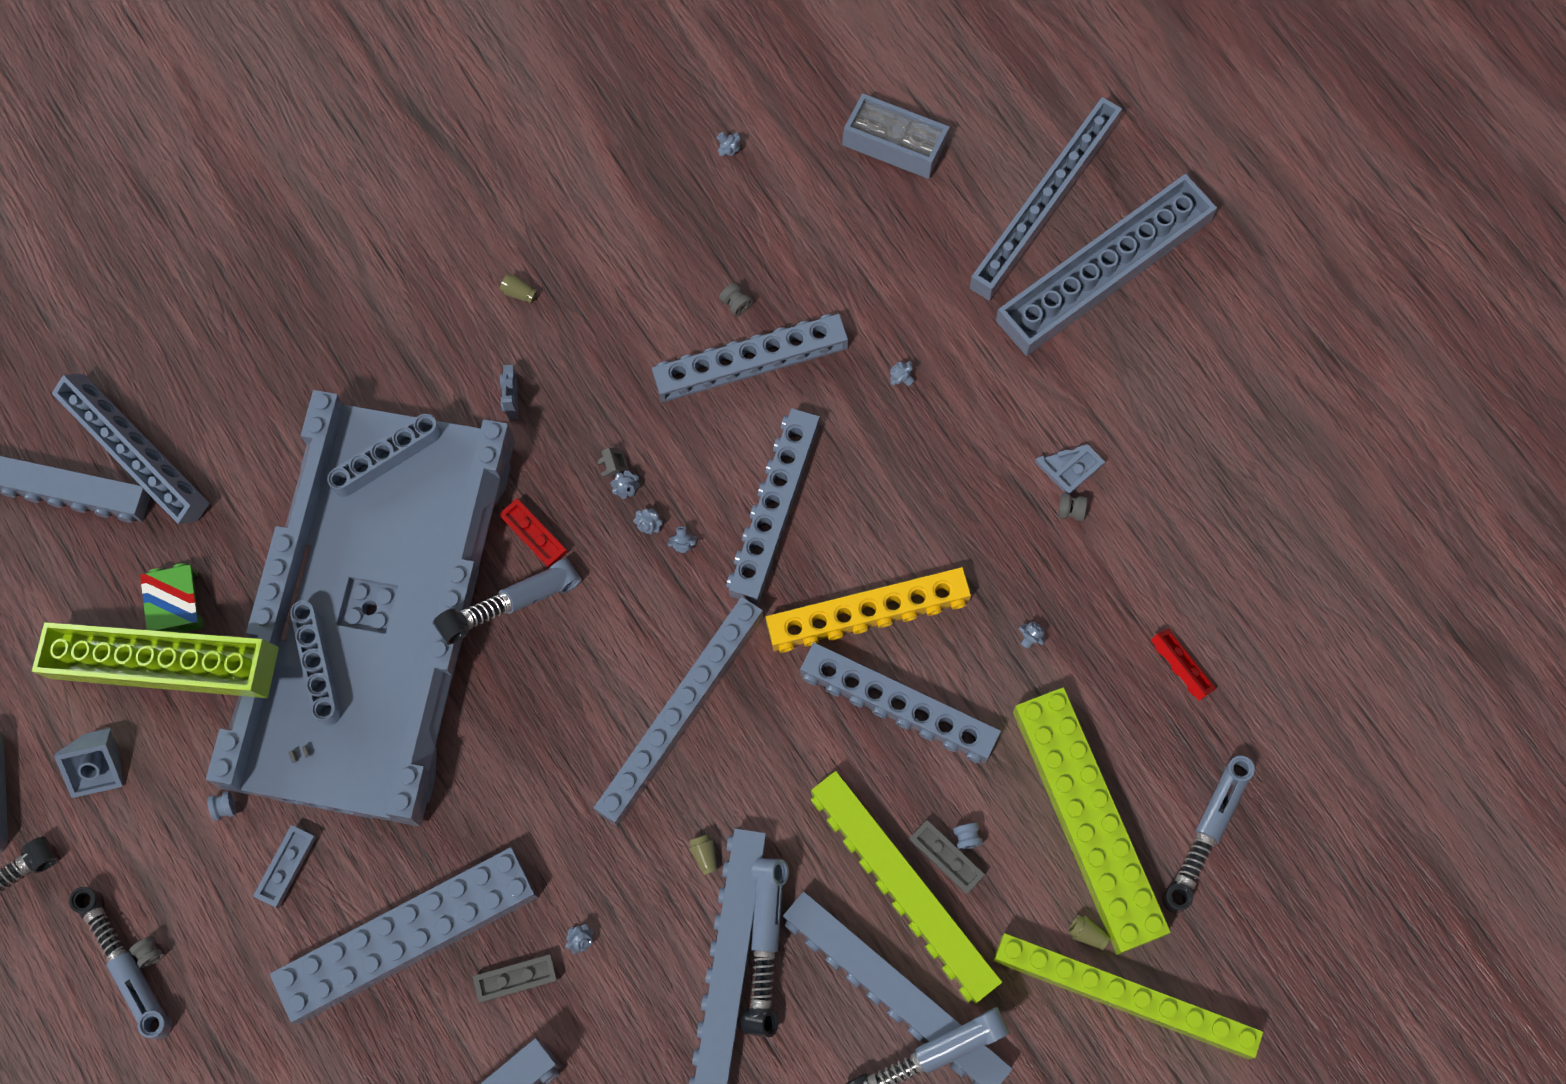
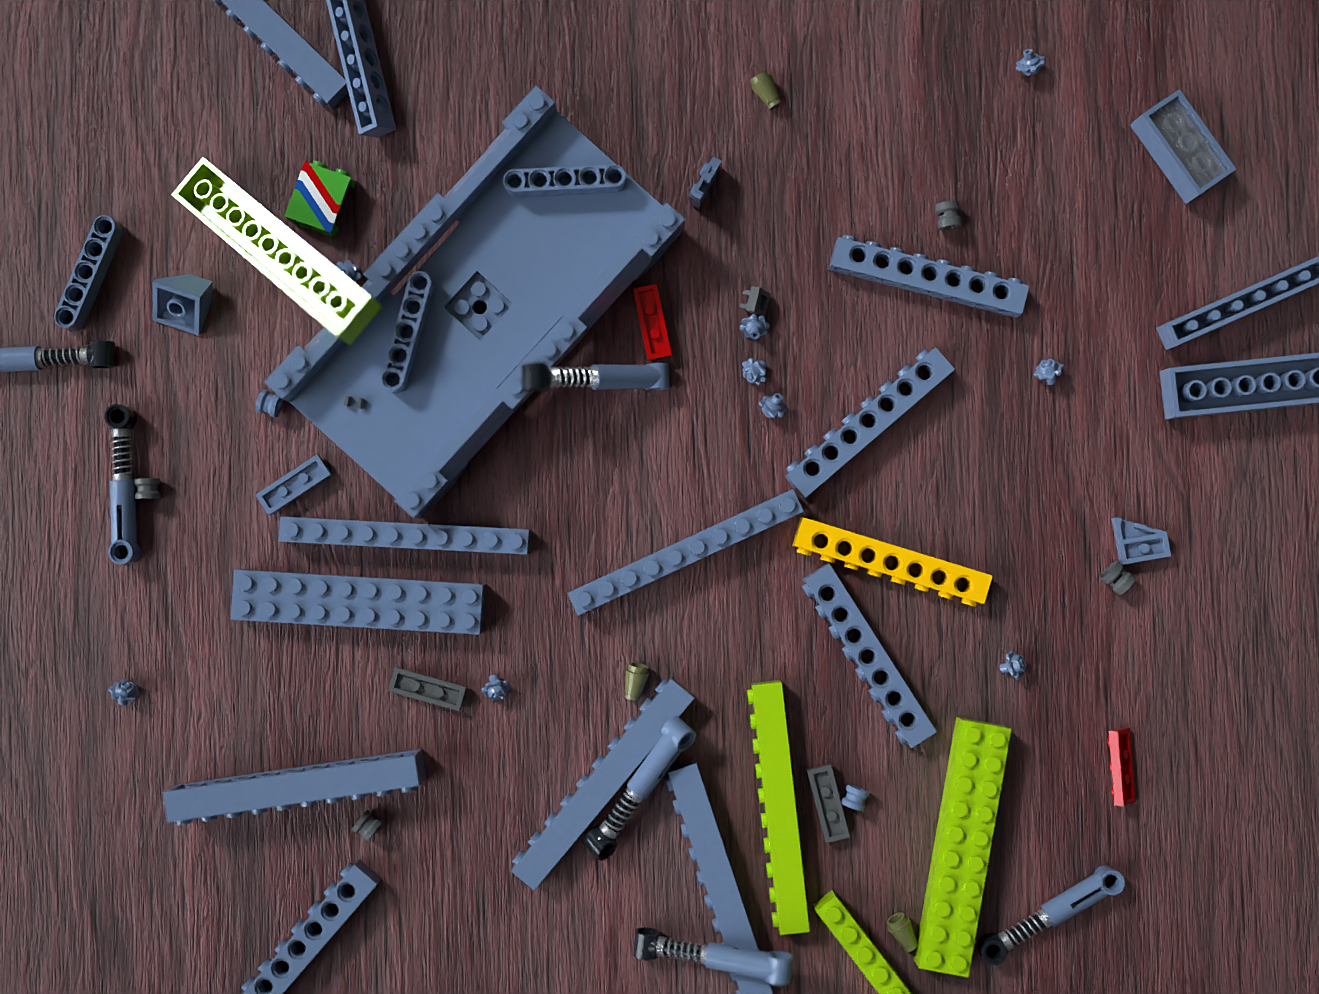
camera: 25 degrees right, 15 degrees up
(413, 850) = (404, 535): none -> sand blue brick

